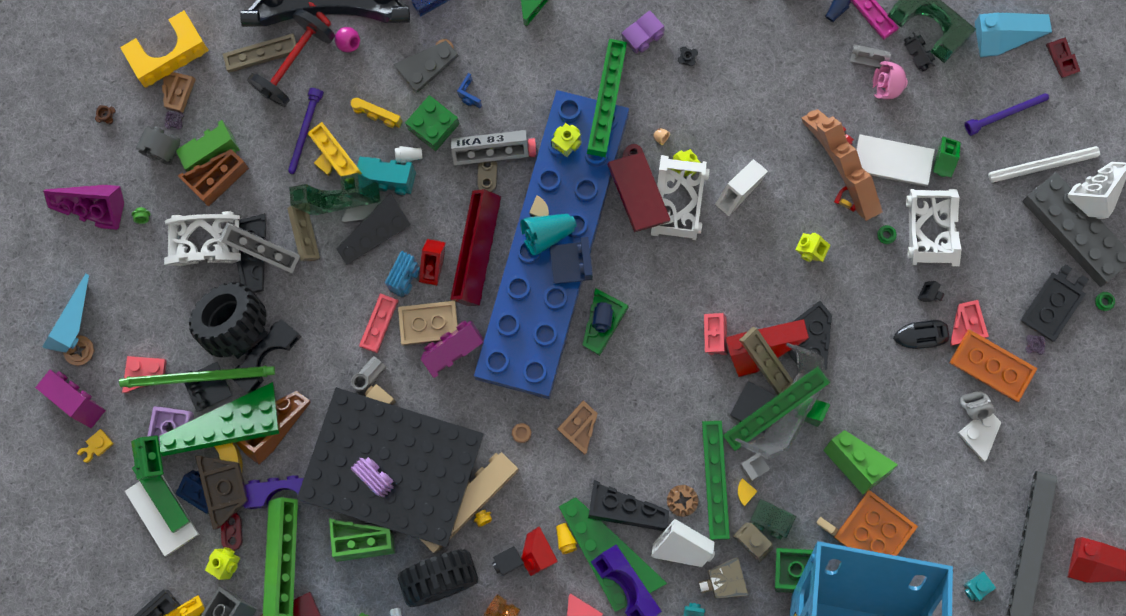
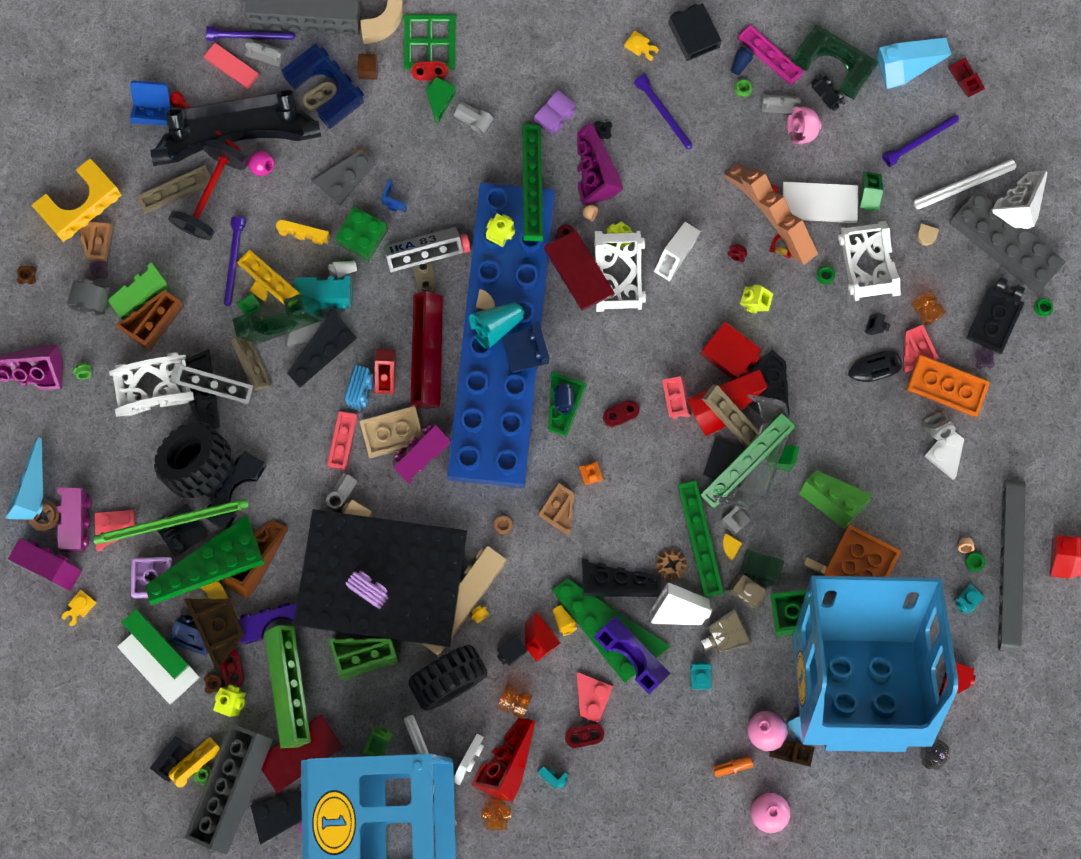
camera: 20 degrees left, 0 degrees up
(105, 359) = (73, 519): none -> magenta wedge
(147, 457) = (136, 608): green brick -> none
(207, 538) = (209, 679): none -> reddish brown plate
(312, 175) = (249, 304): none -> green tile
(565, 28) = (476, 119): none -> light grey piece
(617, 395) = (590, 473): none -> orange tile
(658, 341) = (621, 413): none -> dark red plate
(676, 97) = (599, 174): none -> magenta wedge
(735, 16) = (643, 83): none -> dark purple piece
(778, 296) = (731, 352): none -> red brick
(801, 198) = (737, 252): none -> dark red plate
(835, 31) = (743, 84): none -> bright green plate
(985, 531) = (966, 541): none -> light nougat hinge
(986, 284) = (928, 308): none -> clear orange wheel
(991, 549) = (974, 562): none -> green tile
(997, 209) = (927, 234): none -> tan tile

